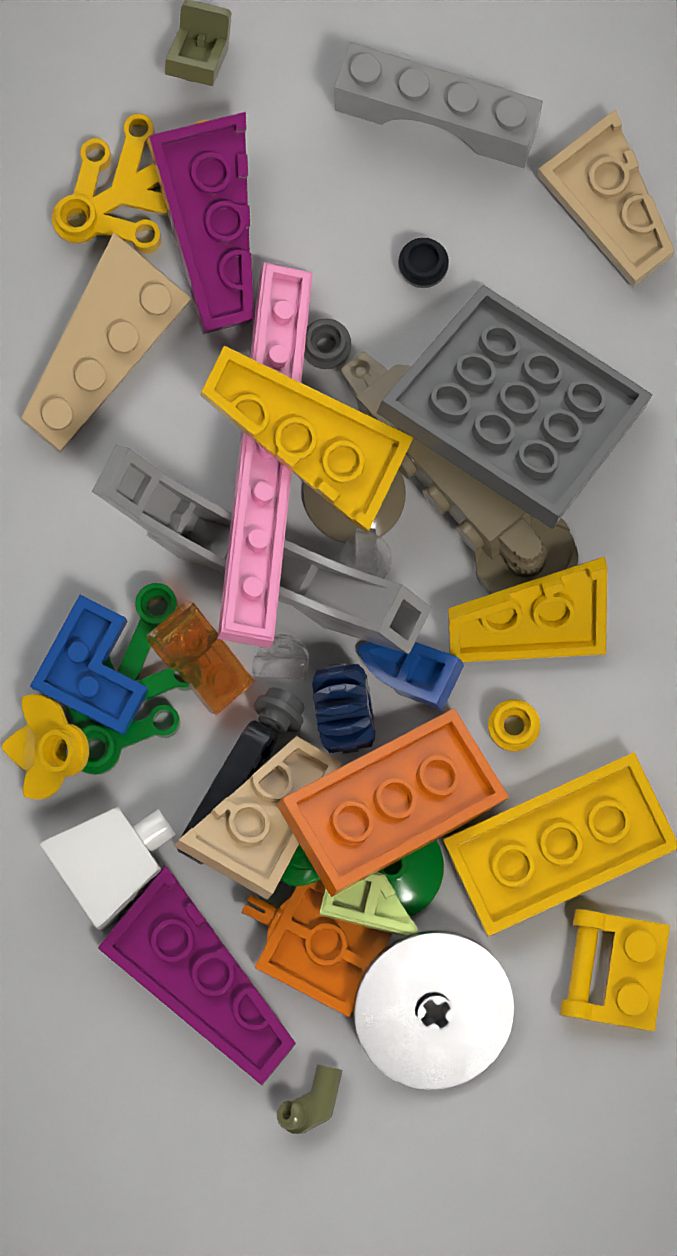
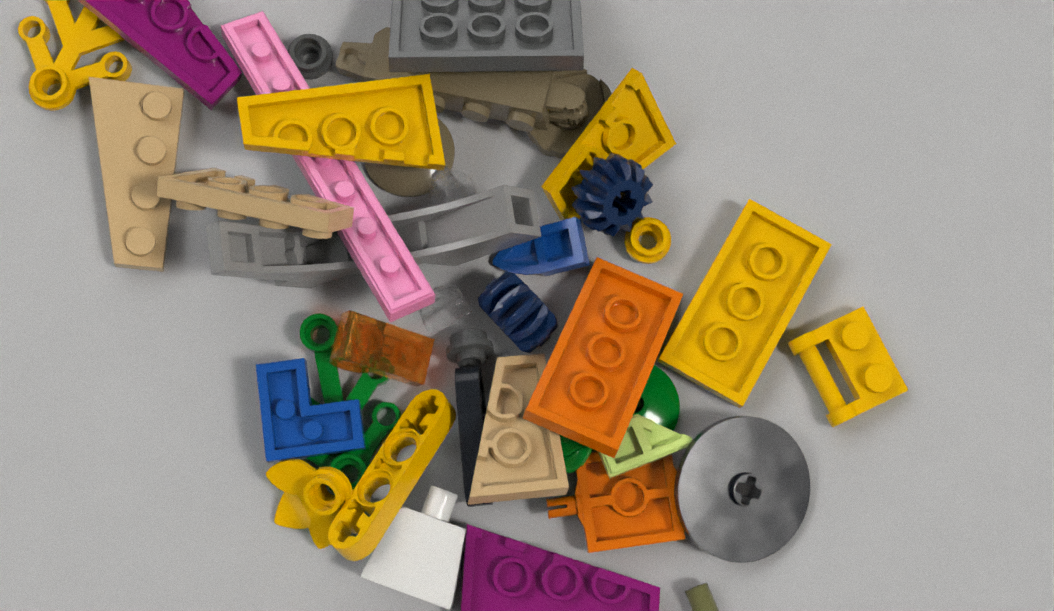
camera: 45 degrees left, 0 degrees up
(129, 769) = (433, 418): none -> yellow beam
(168, 438) = (240, 198): none -> tan wing
(506, 660) = (612, 194): none -> dark blue gear

